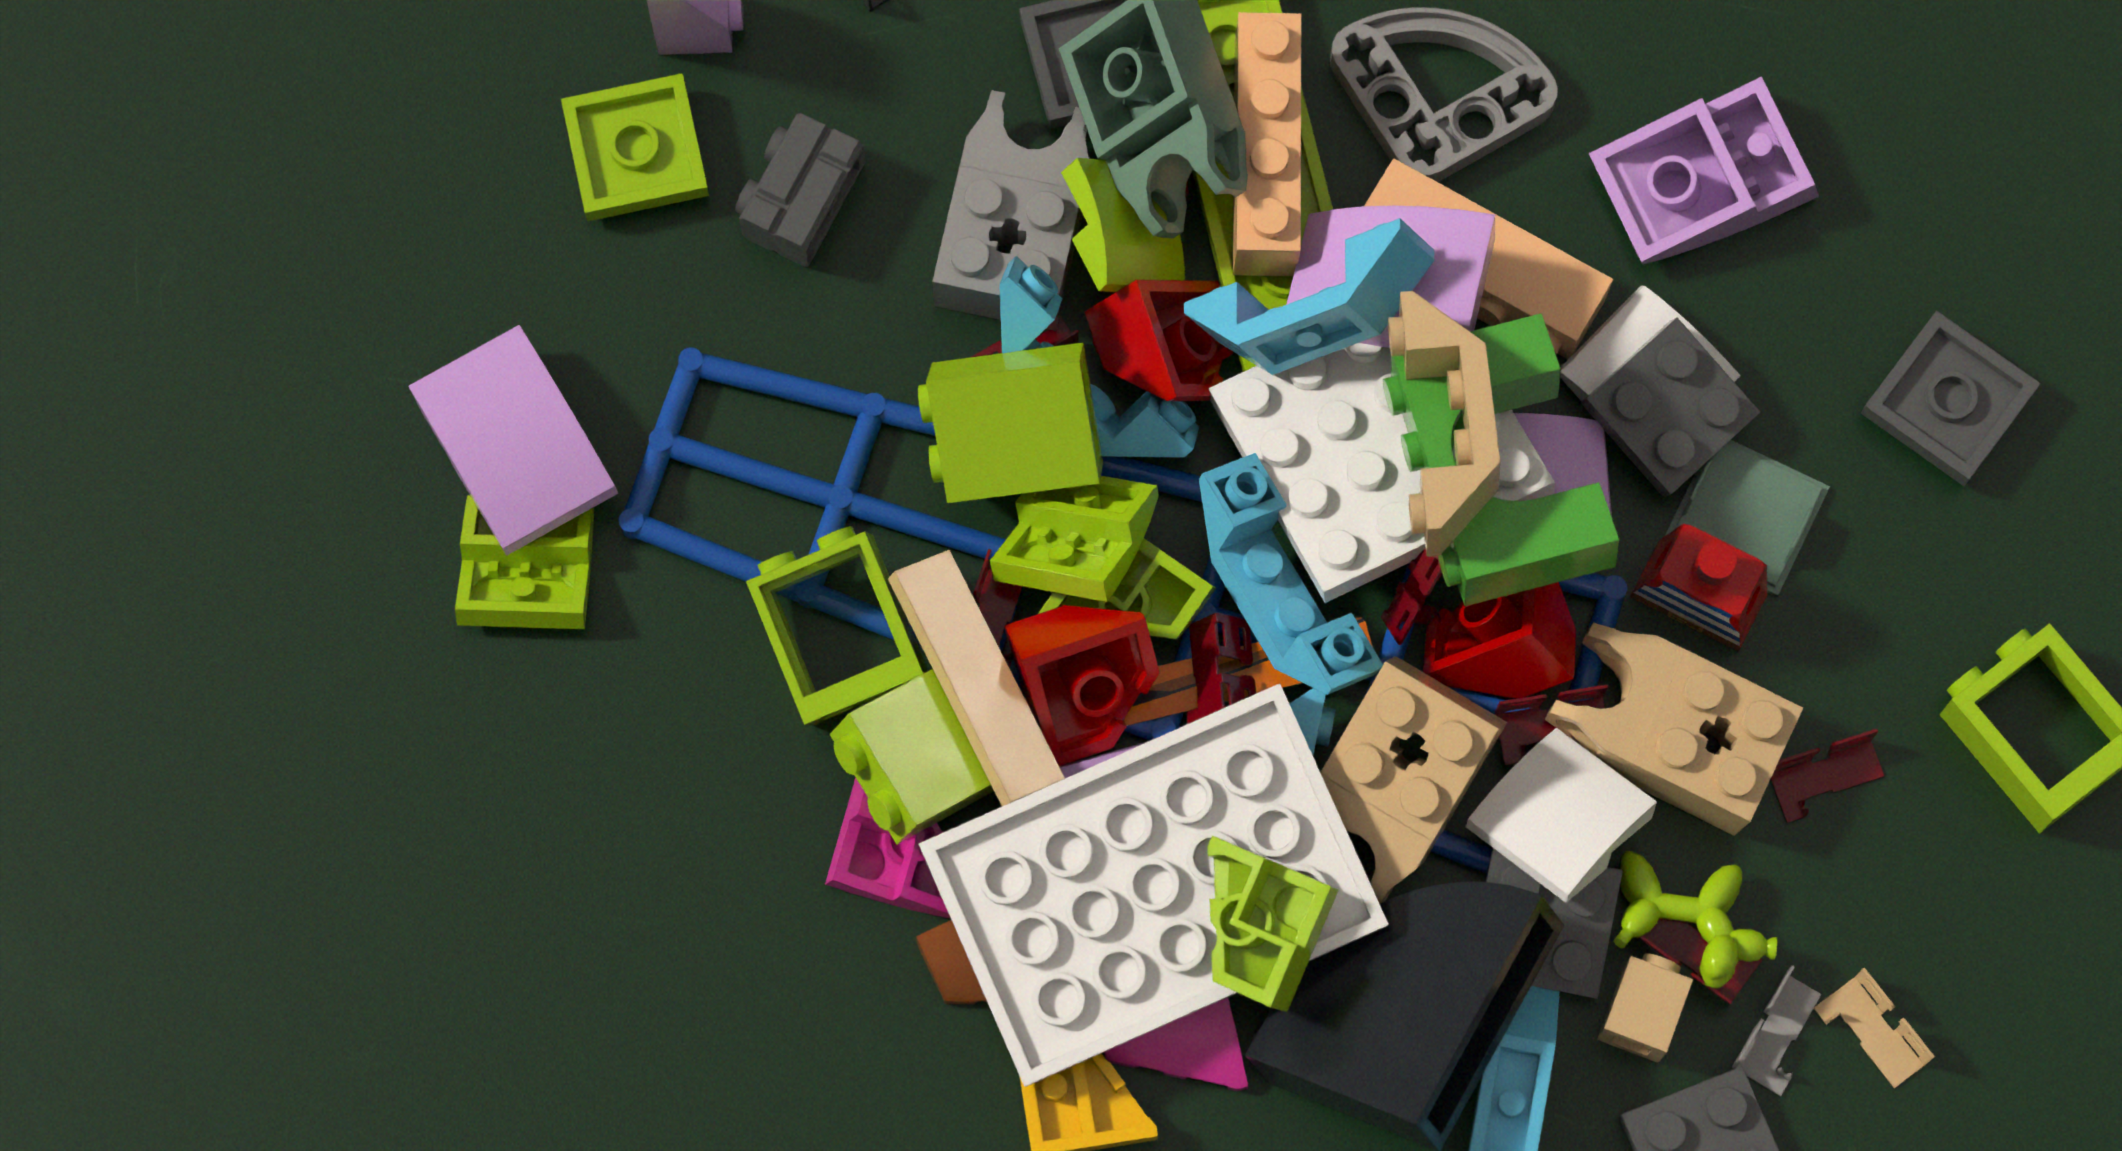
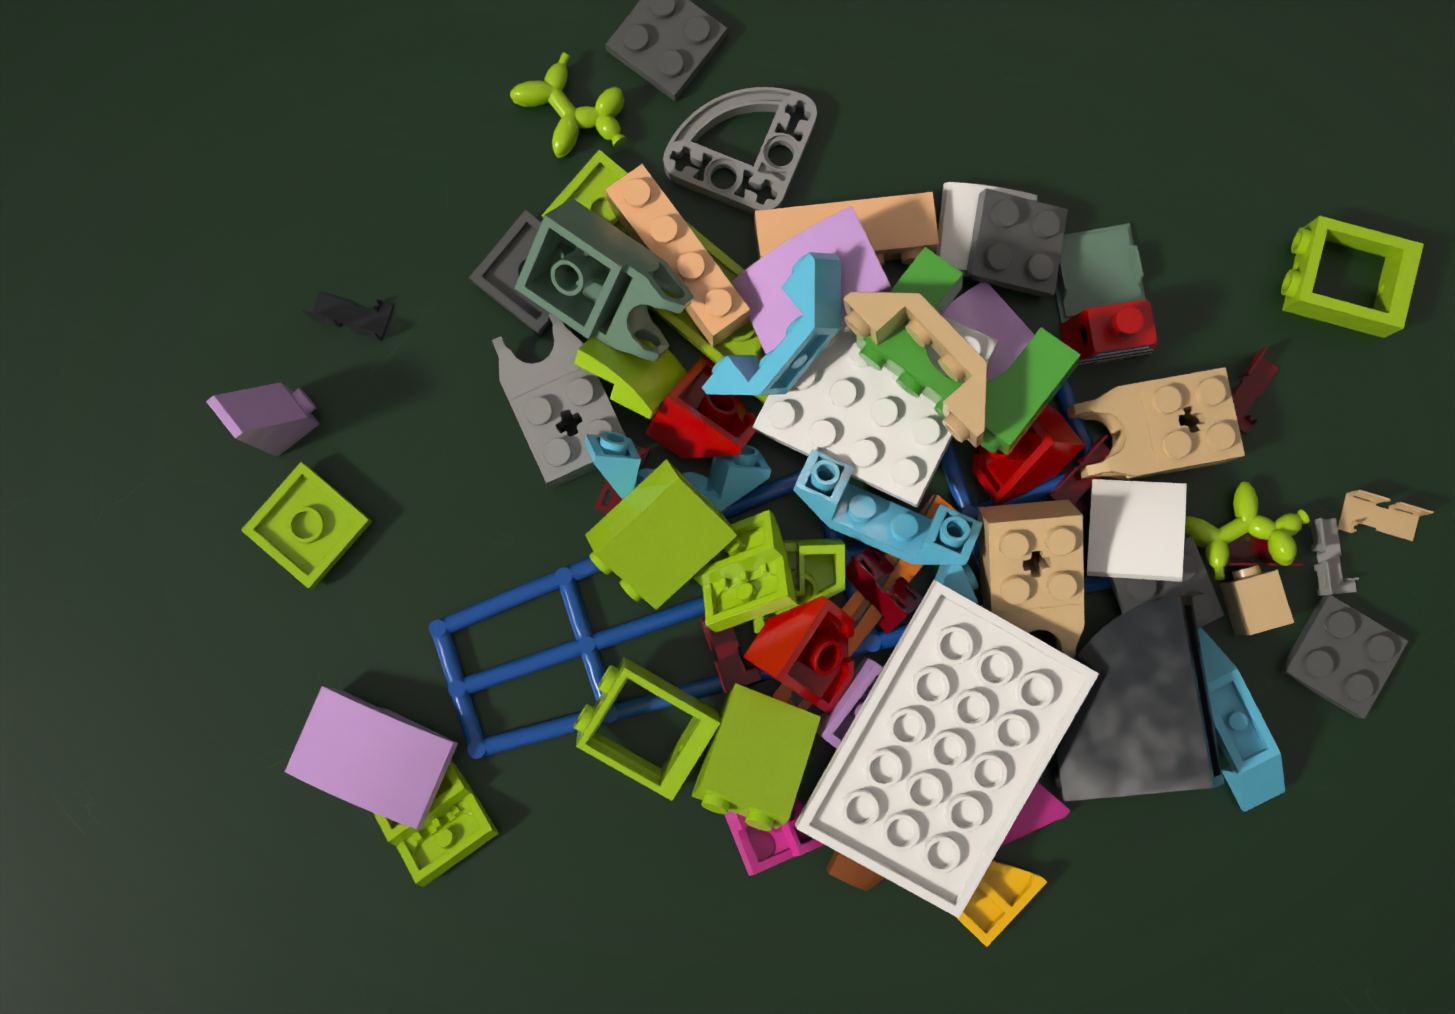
camera: 40 degrees left, 10 degrees up
(800, 188) = (423, 479): dark grey brick -> none
(975, 677) = (753, 704): tan tile -> none
(1263, 923) = (1032, 728): lime slope -> none
(1411, 595) = (960, 469): dark red piece -> none
(1704, 173) = (931, 89): lavender slope -> none
(1950, 398) = (1162, 123): dark grey plate -> none

